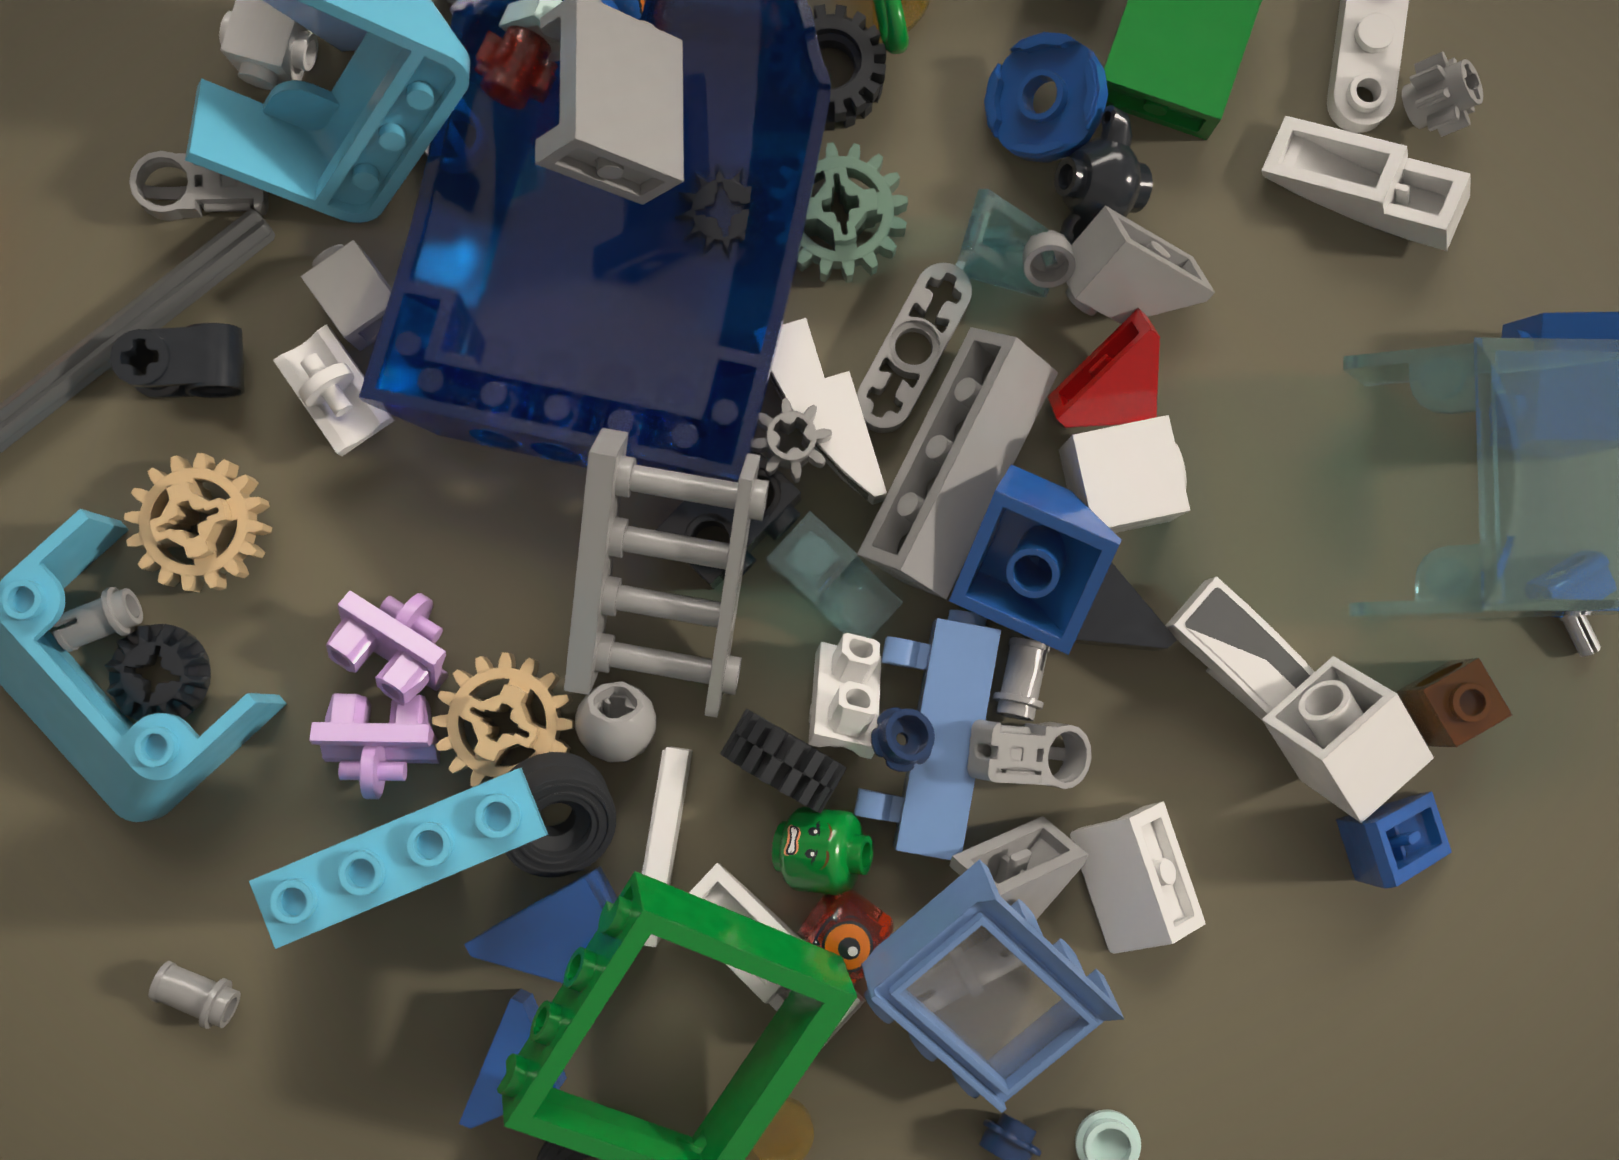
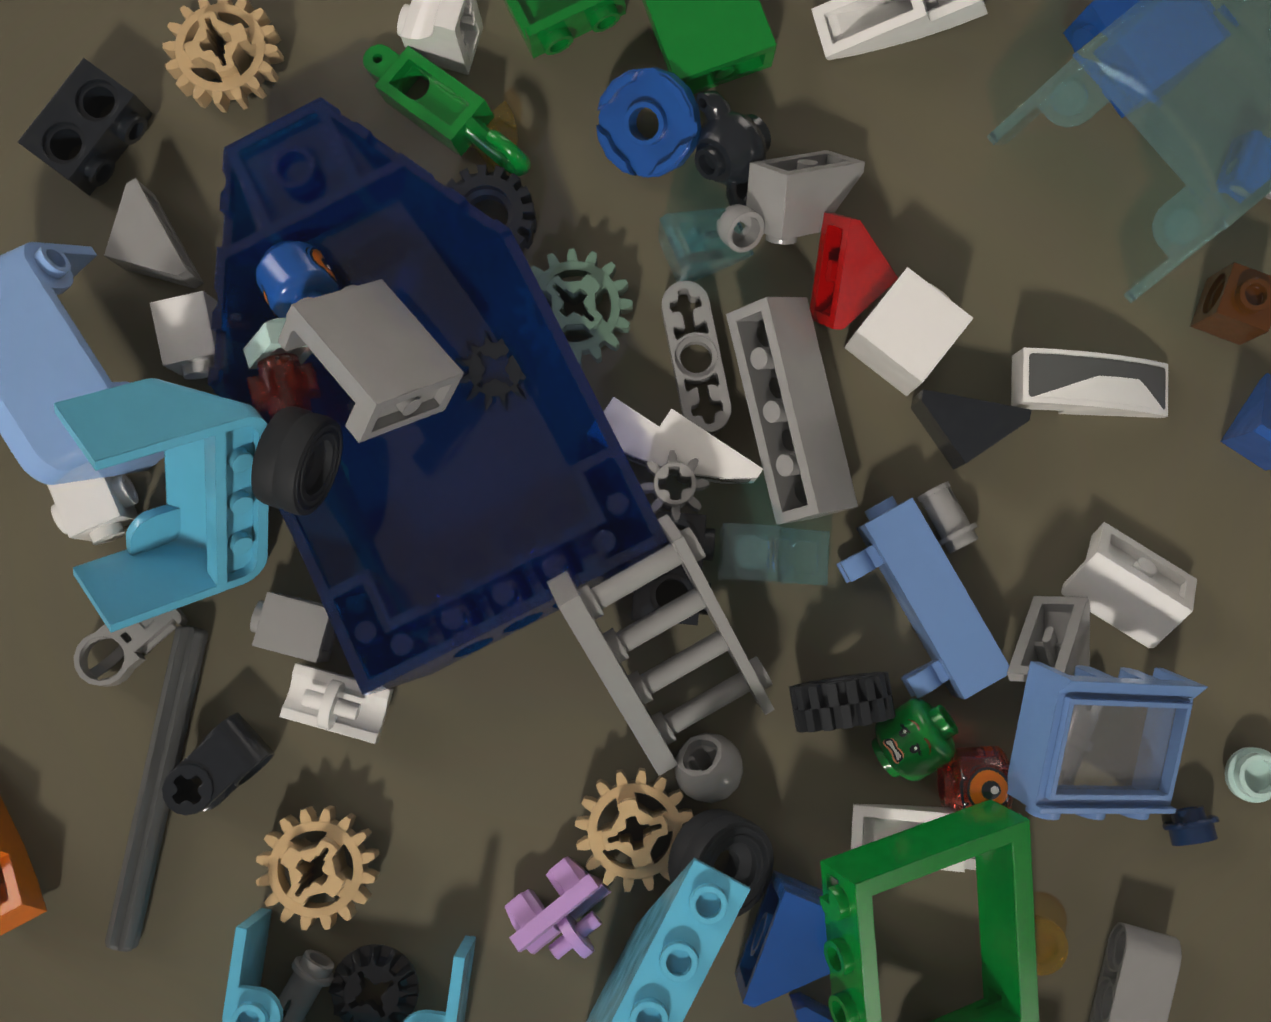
camera: 35 degrees left, 0 degrees up
(395, 633) = (538, 837): lavender hips -> none
(471, 139) = (297, 460): none -> black tyre
(666, 818) = (794, 803): white tile -> none
(846, 694) = (847, 625): white hips -> none
(916, 730) = (917, 611): dark blue plate -> none
(1022, 753) = (991, 568): light grey piece -> none
(1036, 560) = (900, 432): blue slope -> none
(1348, 738) = (1194, 383): white head -> none

